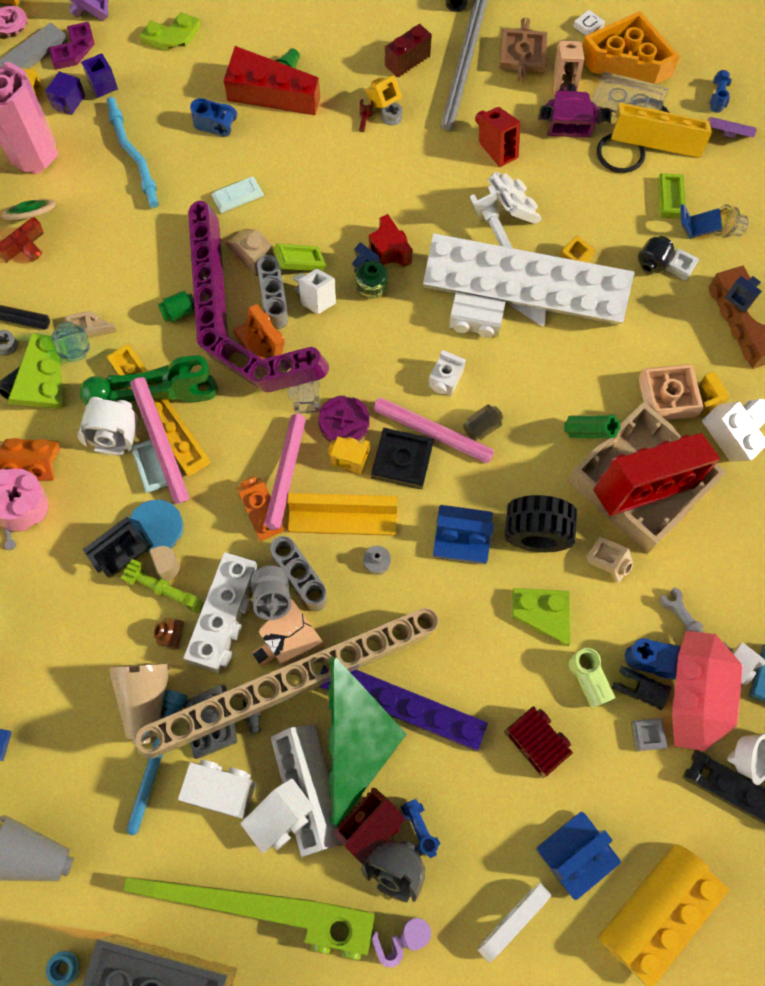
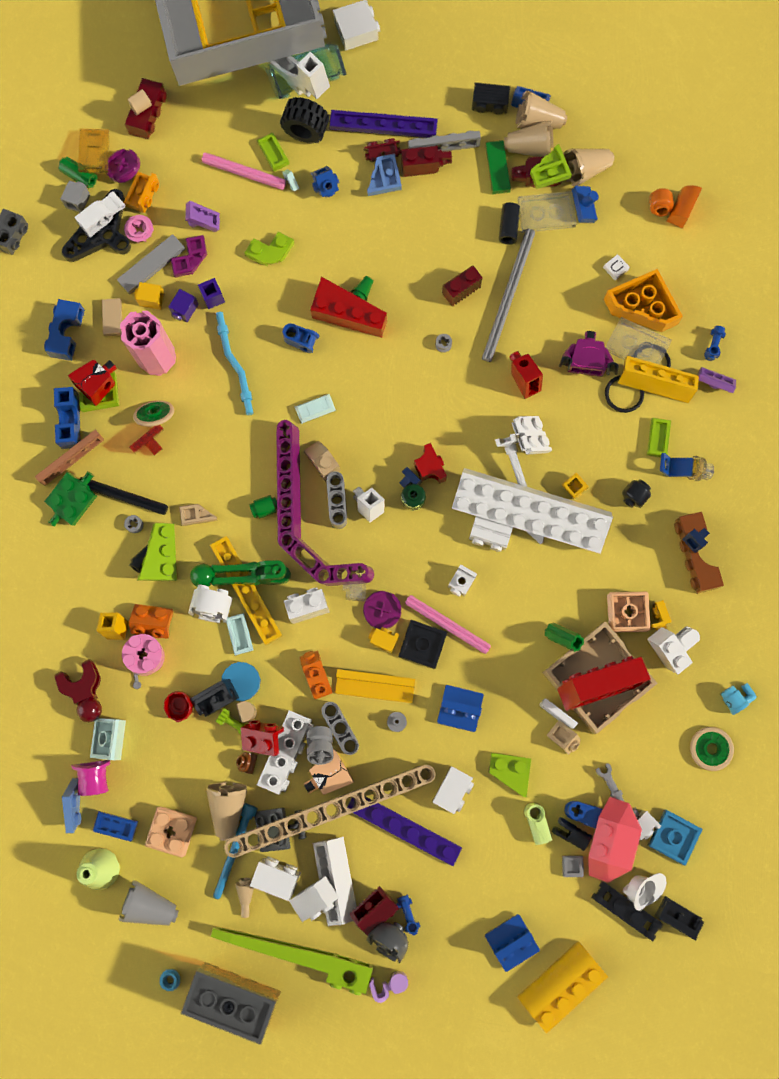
camera: 10 degrees right, 10 degrees up
(67, 563) = (178, 706): none -> red hair
(69, 757) = (182, 826): none -> light nougat brick
(71, 341) = (184, 531): clear light blue head -> none
(159, 440) = (246, 619): bright pink axle -> none
(174, 818) = (245, 894): none -> tan cone
(186, 593) = (261, 737): none -> red bracket
(241, 416) = (306, 605): none -> white brick
(259, 334) = (324, 539): orange bracket -> none
(285, 472) = (336, 650): bright pink axle -> none
(299, 257) = (359, 473): lime tile -> none
(359, 740) = (372, 853): green tile -> none
(365, 112) = (422, 340): dark red hand -> none
(383, 92) = (435, 323): yellow brick -> none
(465, 643) = (452, 790): none -> white brick
(483, 422) = (485, 623): clear smoke brick -> none
(514, 922) = (463, 981): white beam -> none
(523, 50) = (557, 291): medium nougat plate -> none
(539, 741) = (495, 865): dark red brick -> none
(541, 523) = (515, 711): black tyre -> none
(568, 60) = (591, 308): light nougat torso -> none
(598, 527) = (558, 713): none -> white tile
(682, 264) = (657, 500): white tile -> none

